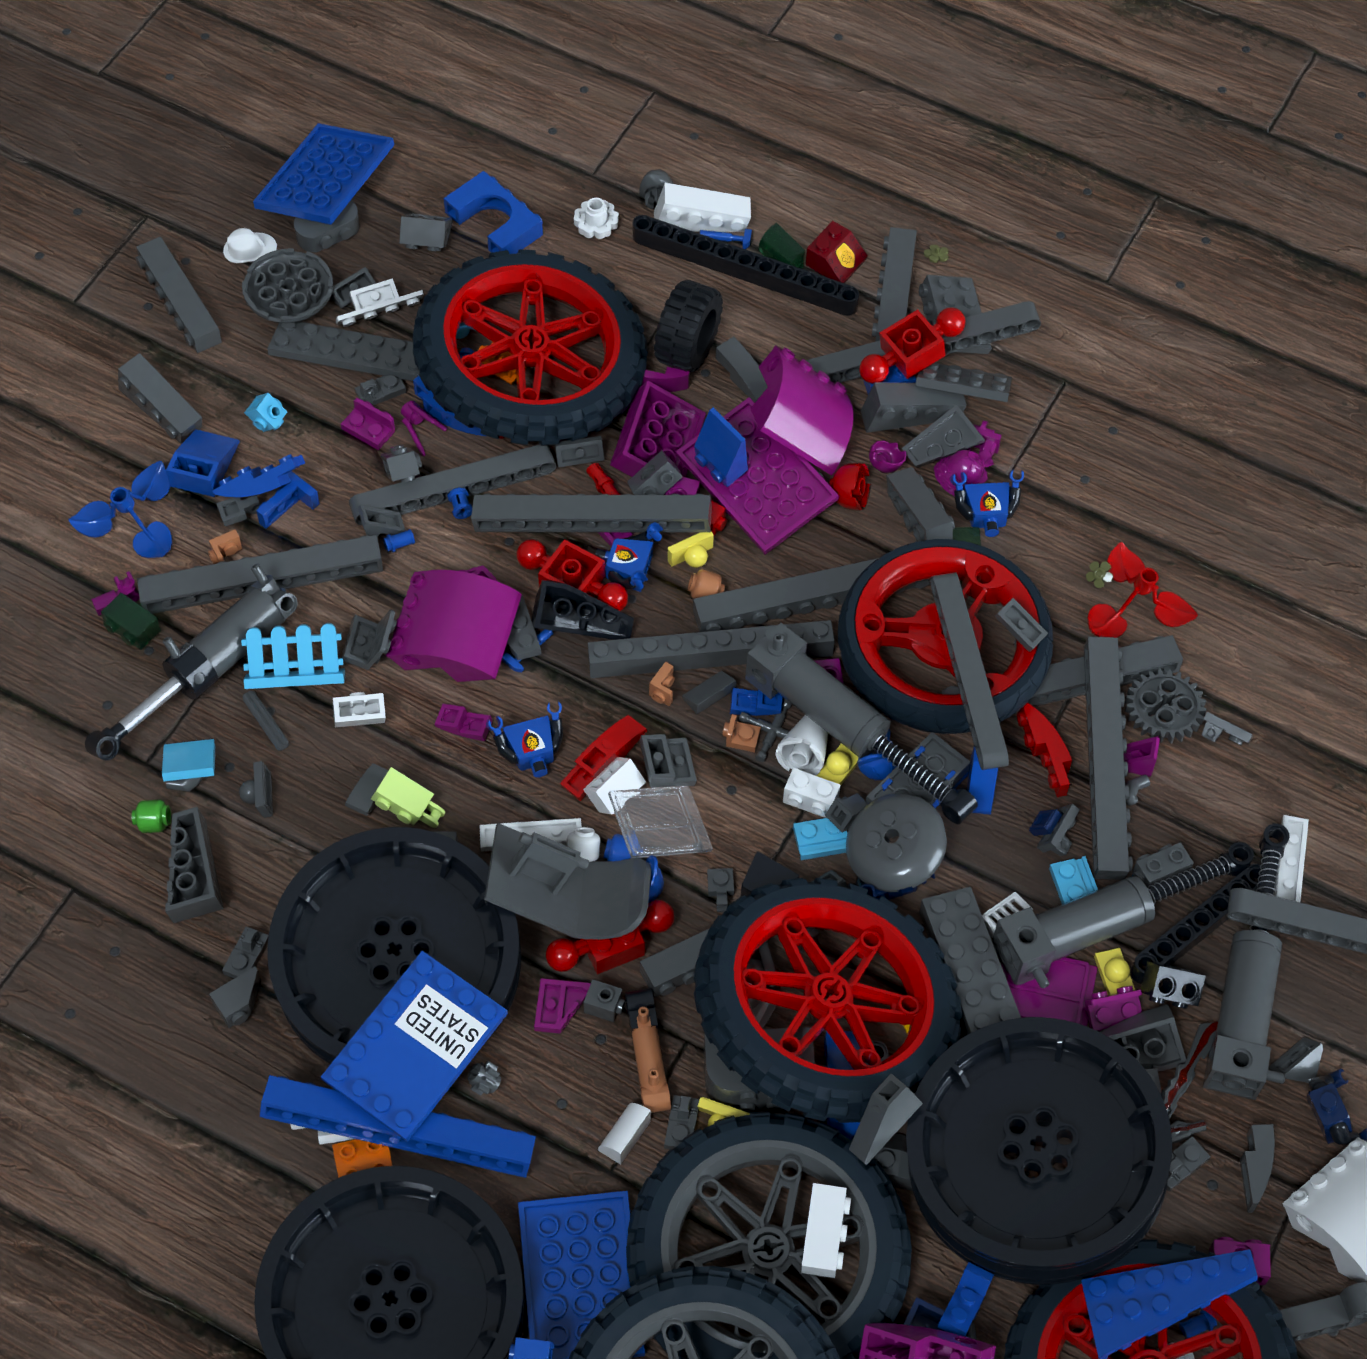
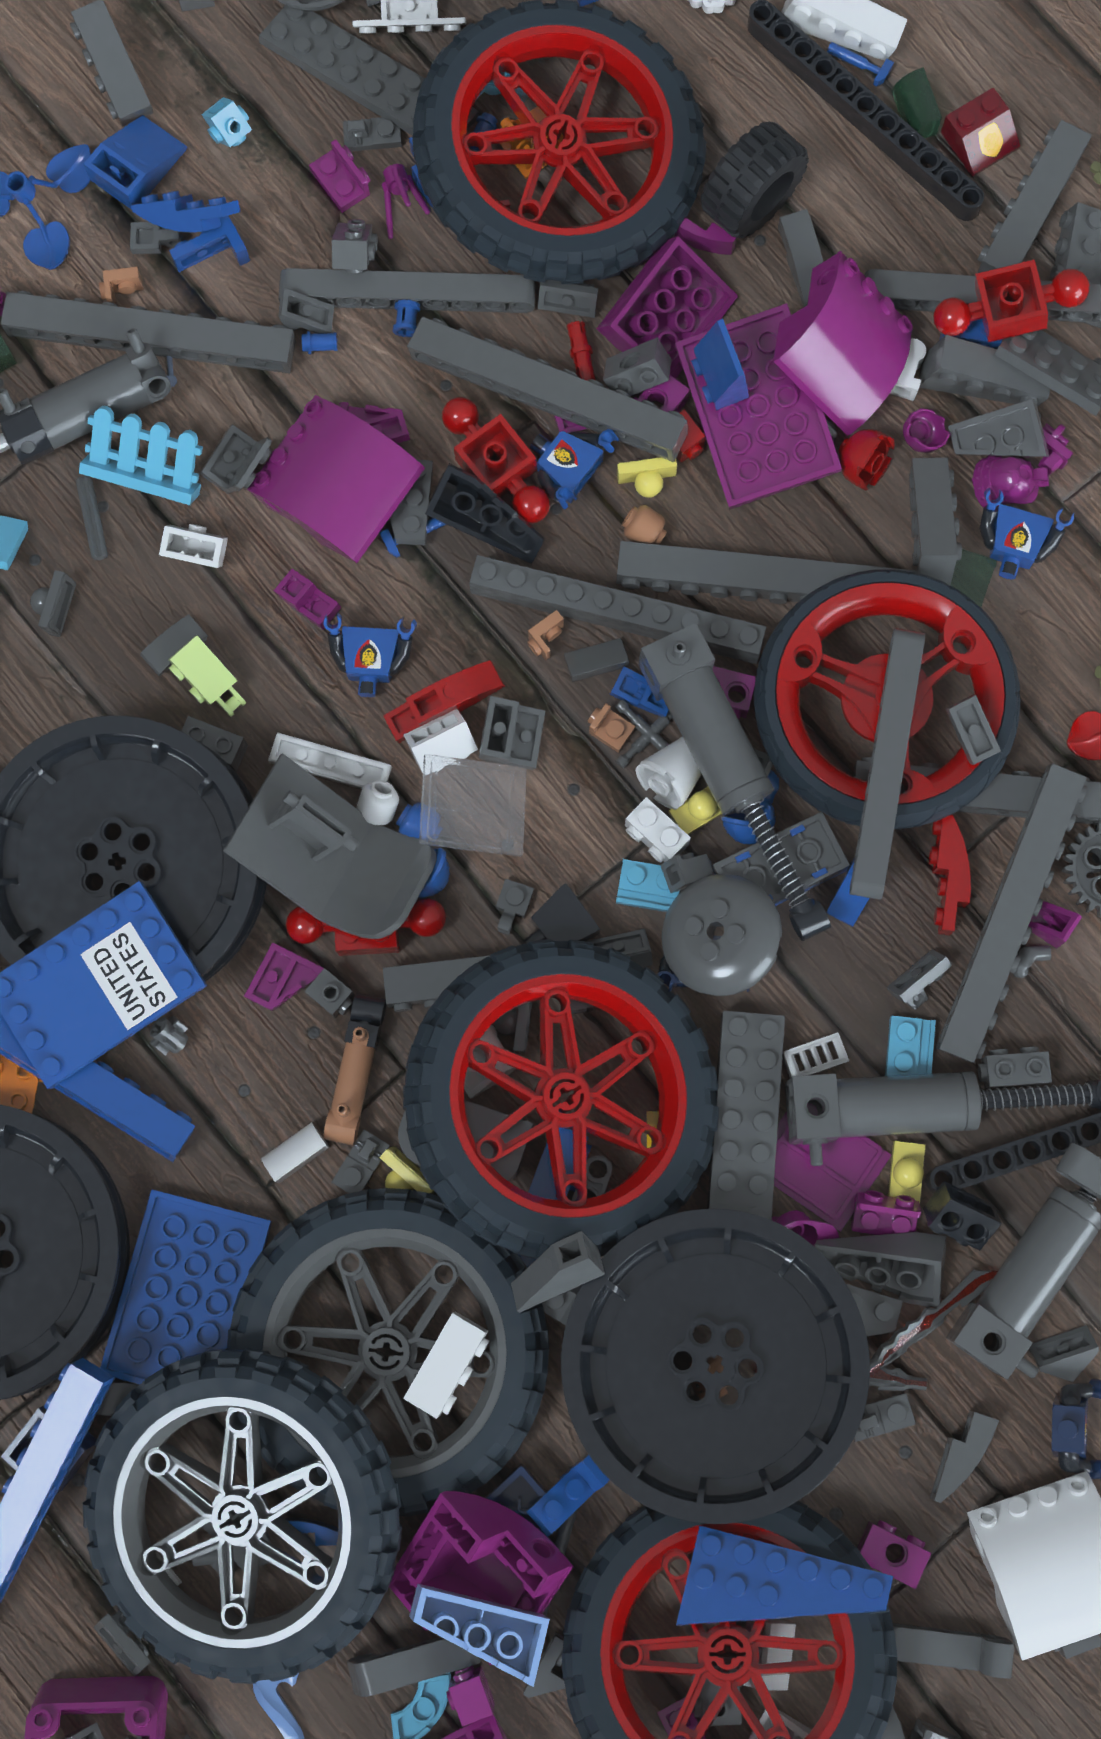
camera: 25 degrees right, 20 degrees up
(860, 430) = (907, 385): none -> white leg
(1045, 822) = (907, 963): dark blue tile -> none

